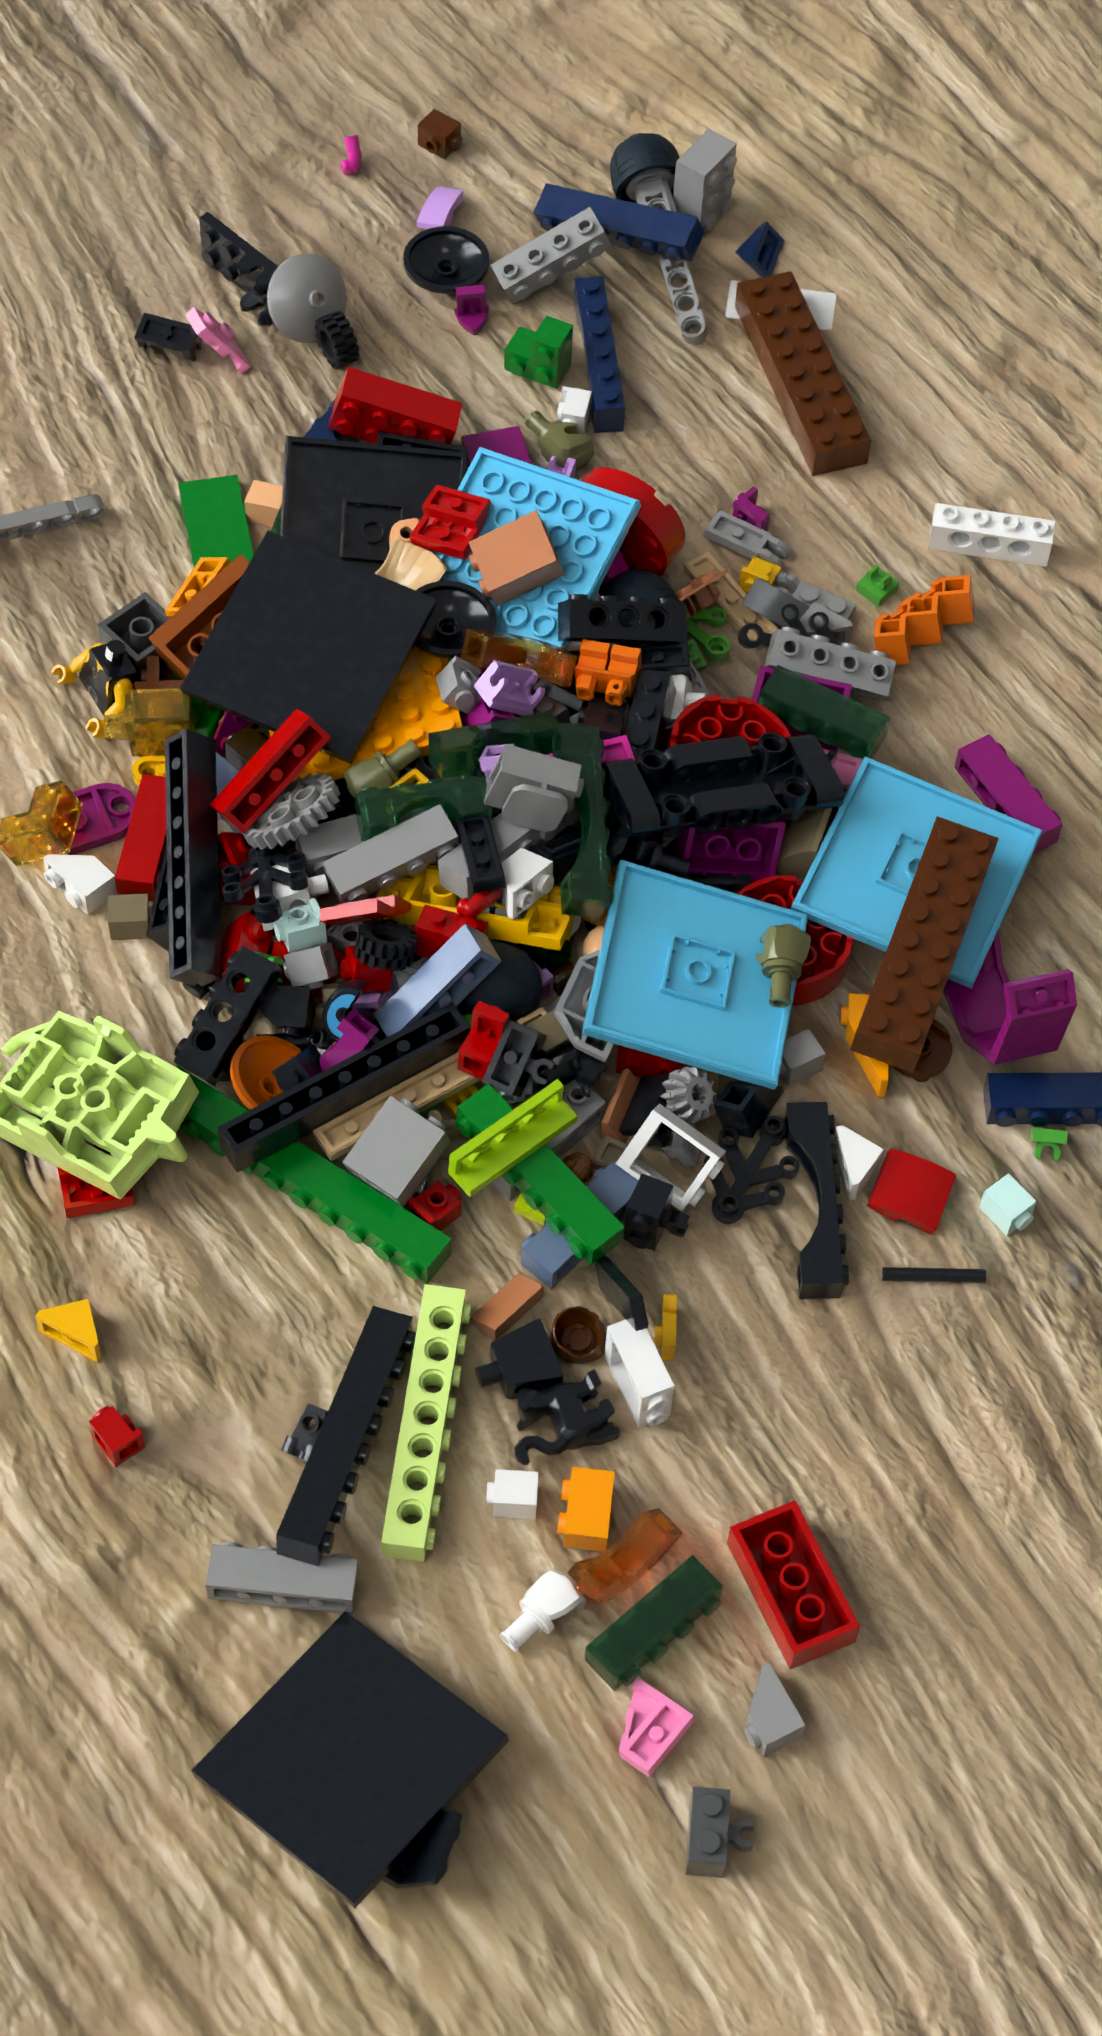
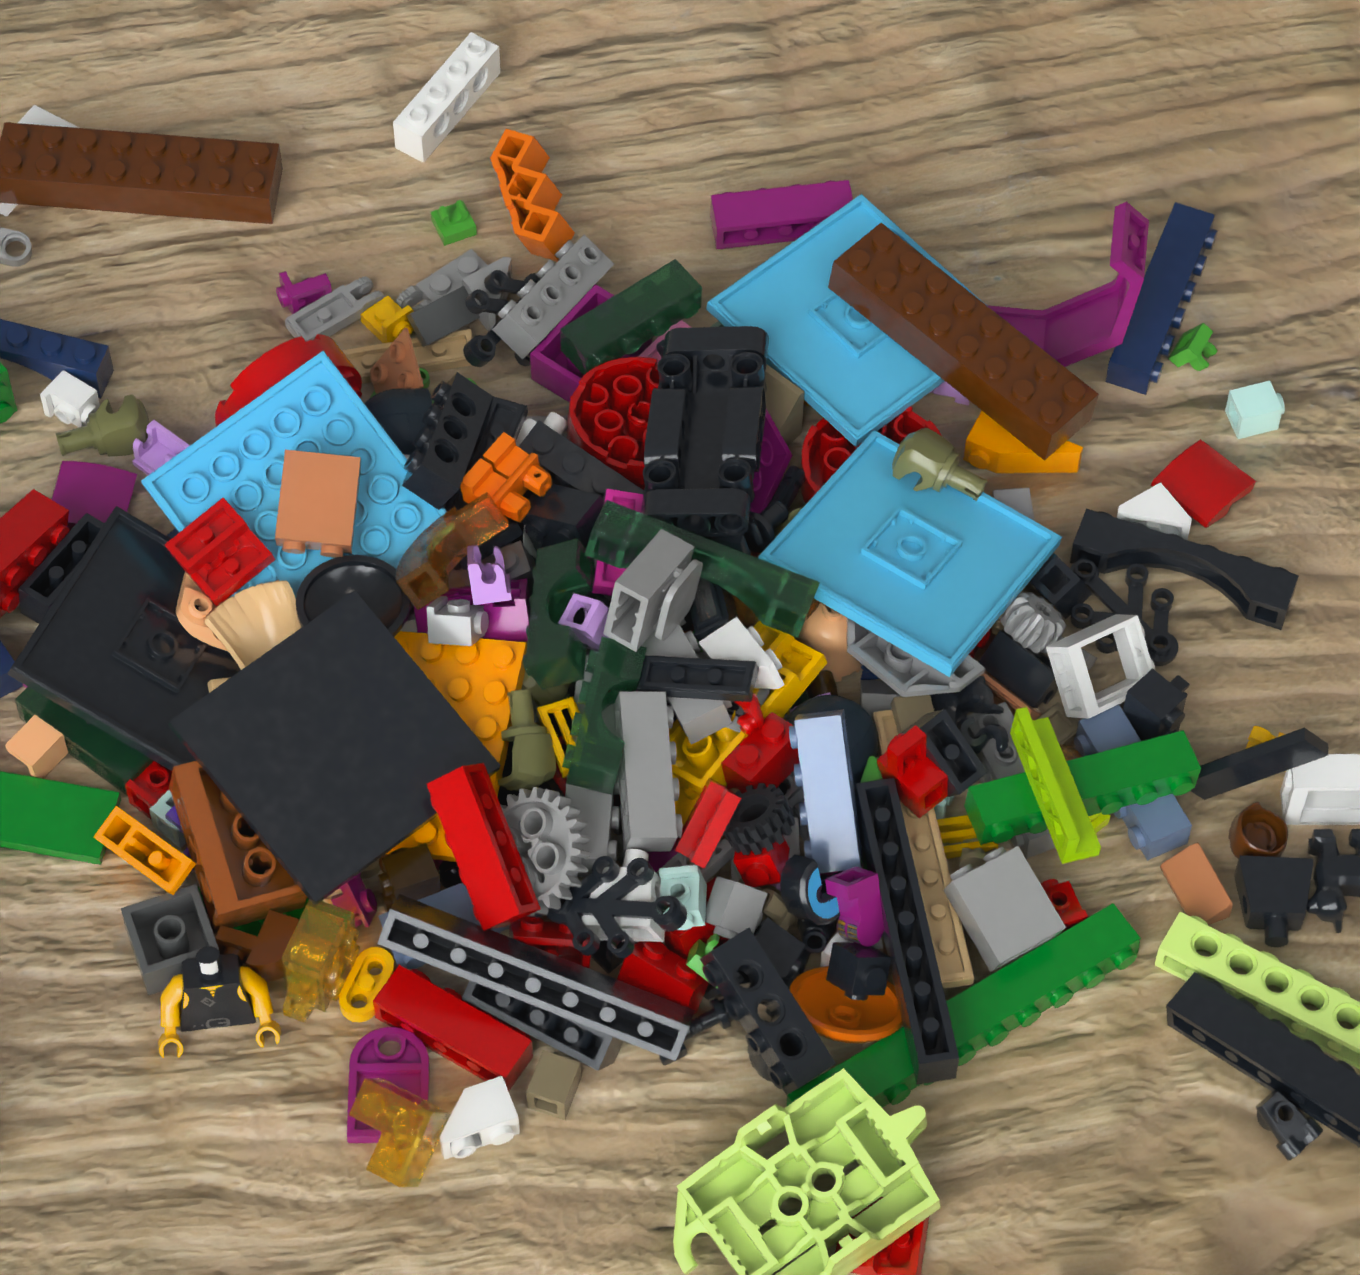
camera: 65 degrees left, 0 degrees up
(933, 1274) = (1301, 504): black bar -> none

